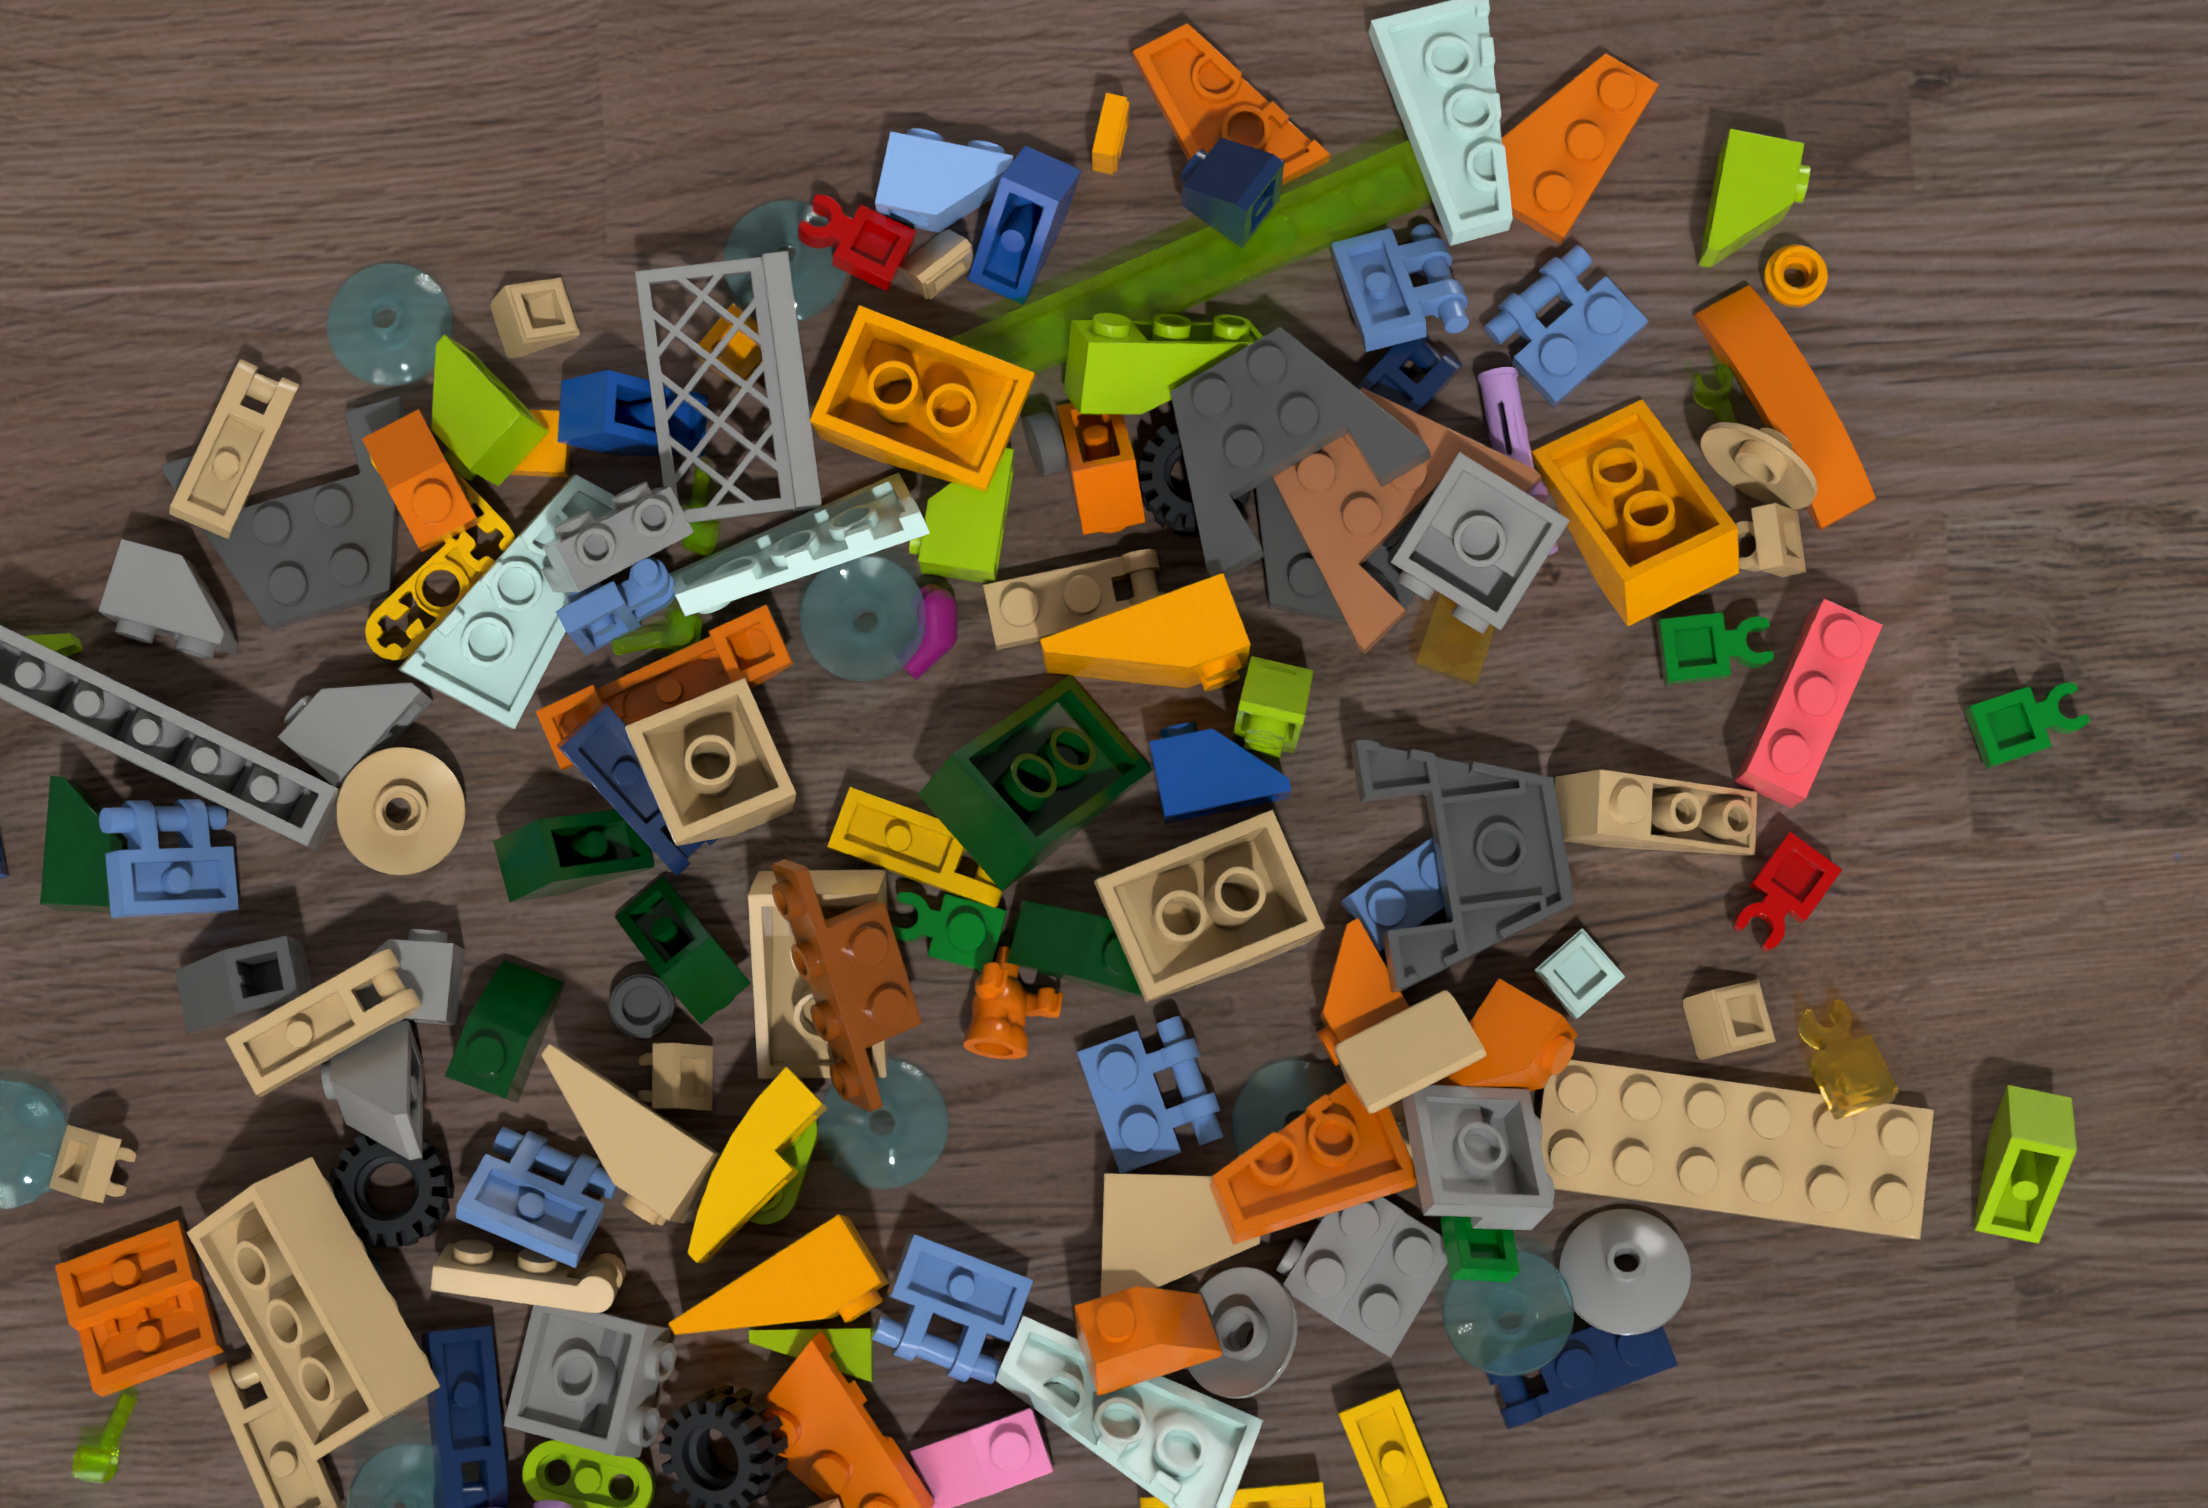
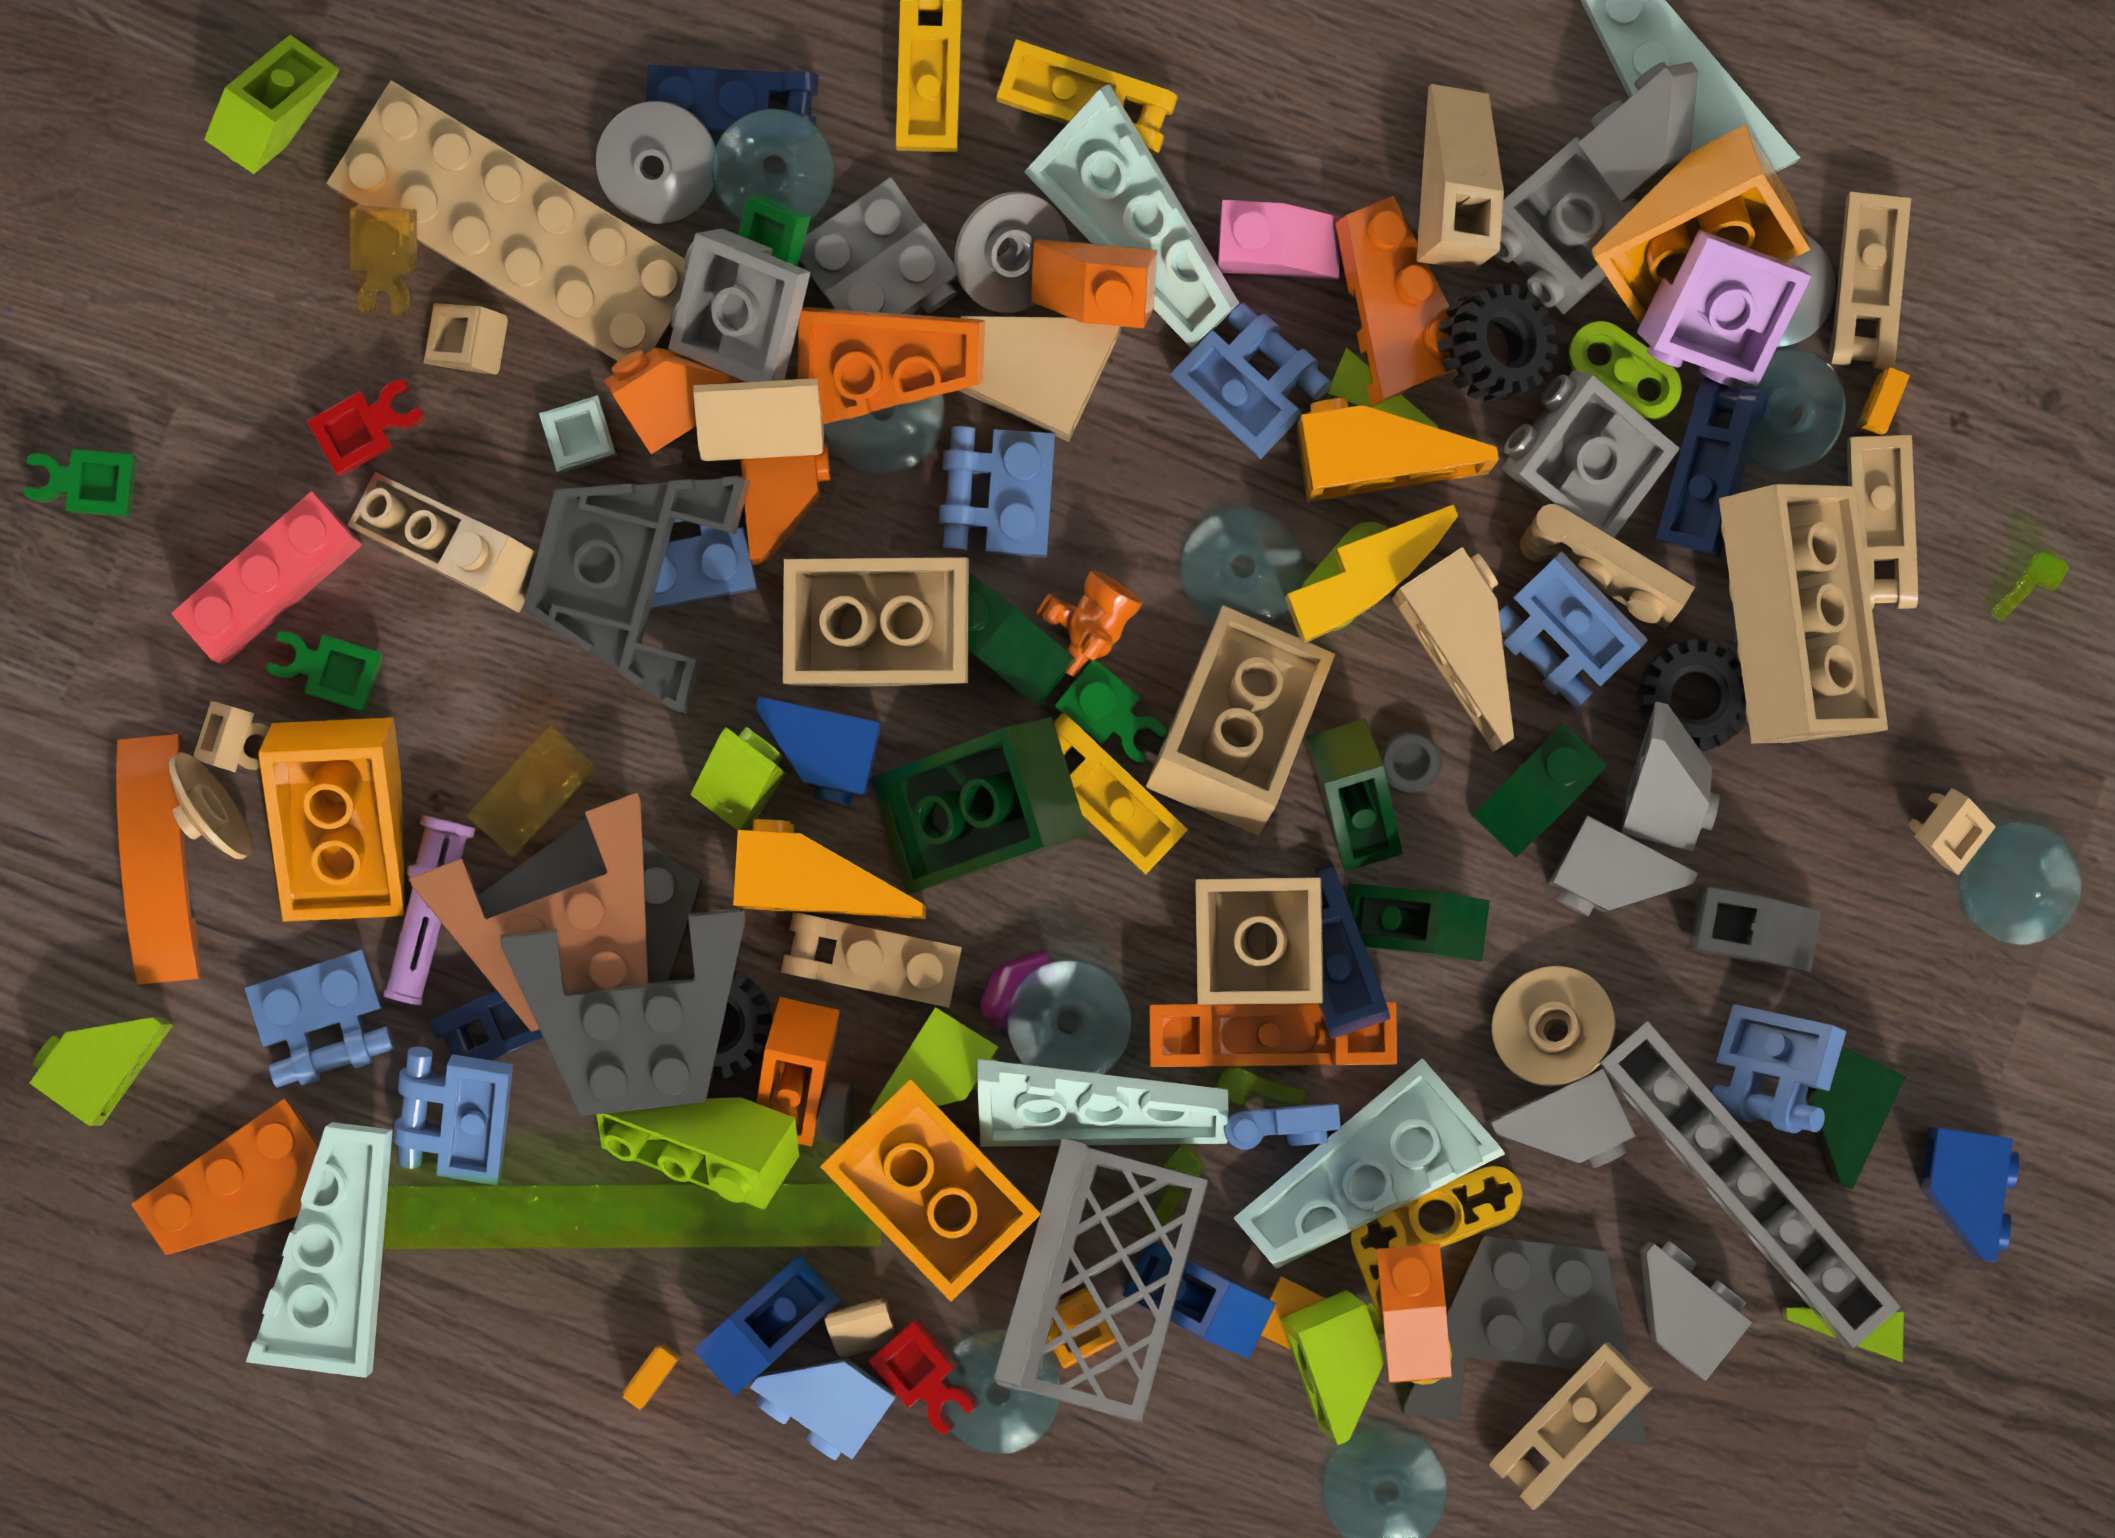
camera: 155 degrees left, 5 degrees up
(139, 1308) = (1957, 688): orange slope -> none
(321, 1023) = (1697, 855): tan plate -> none
(533, 316) = (1250, 1438): tan slope -> none
(602, 546) = (1261, 1171): light grey plate -> none
(679, 1077) = (1403, 681): tan tile -> none
(853, 978) = (1214, 693): dark orange bracket -> none
(1210, 100) = (544, 1341): orange wing -> none
(1232, 188) = (567, 1265): dark blue slope -> none
(1478, 544) = (494, 838): light grey plate -> none
(1716, 399) = (214, 886): clear neon green hand -> none
(1804, 260) = (73, 968): light orange plate -> none

